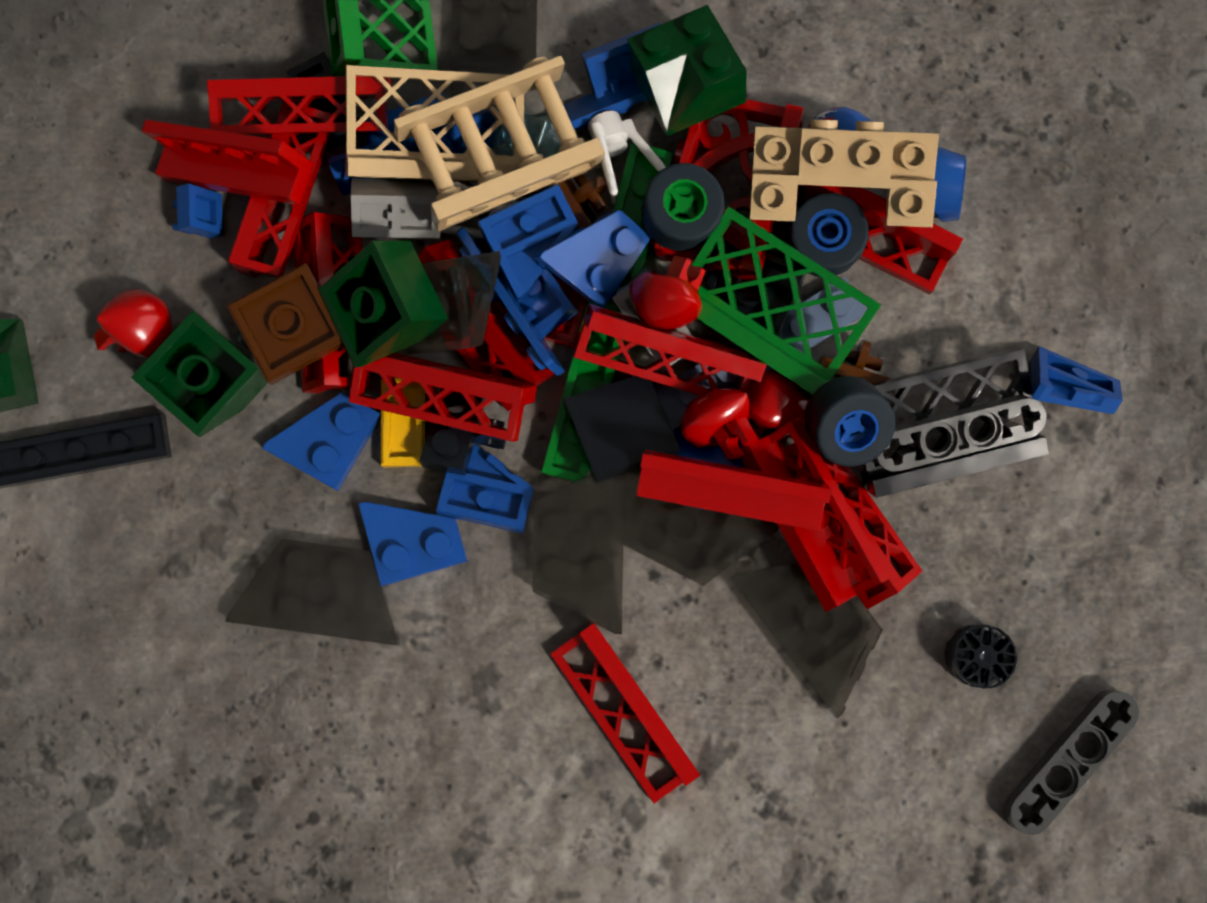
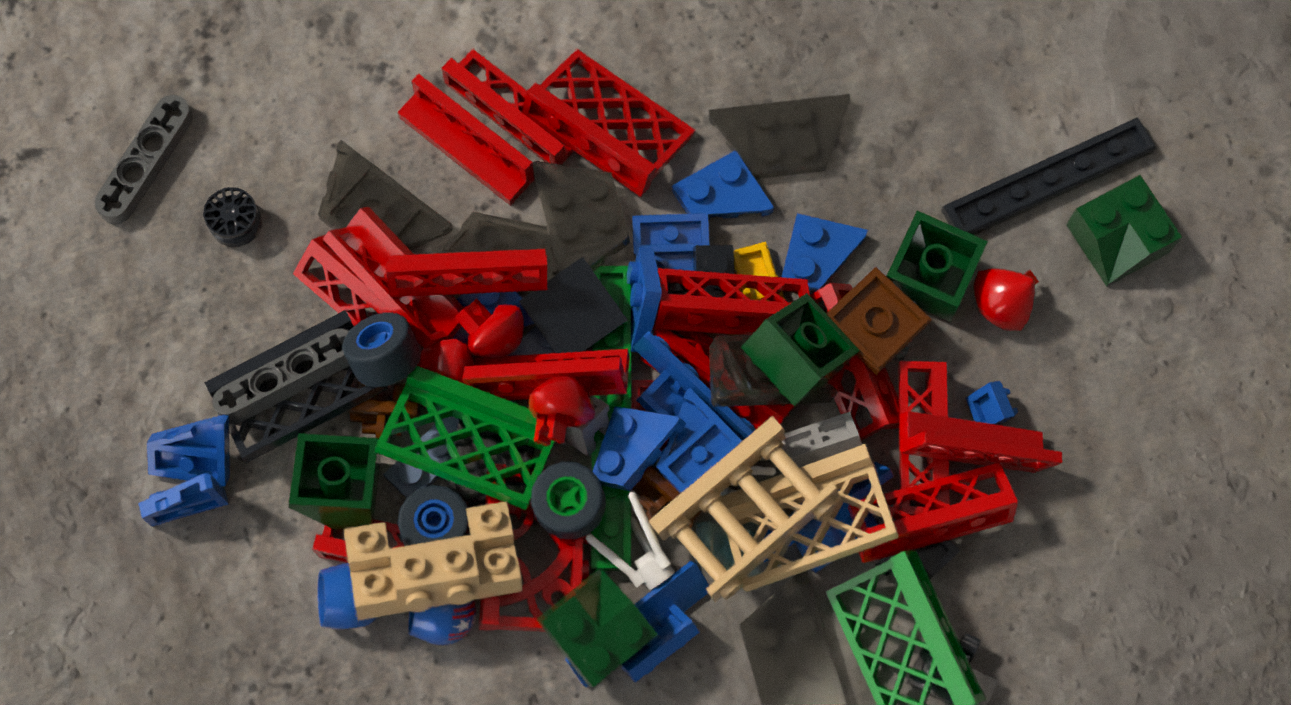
camera: 165 degrees right, 10 degrees down
(535, 426) = (644, 293): none -> blue wing
(551, 647) = (592, 137): none -> red fence
(692, 680) = (467, 141): none -> red fence
(926, 303) = (335, 480): none -> dark green slope
(1106, 332) = (184, 500): none -> blue wing

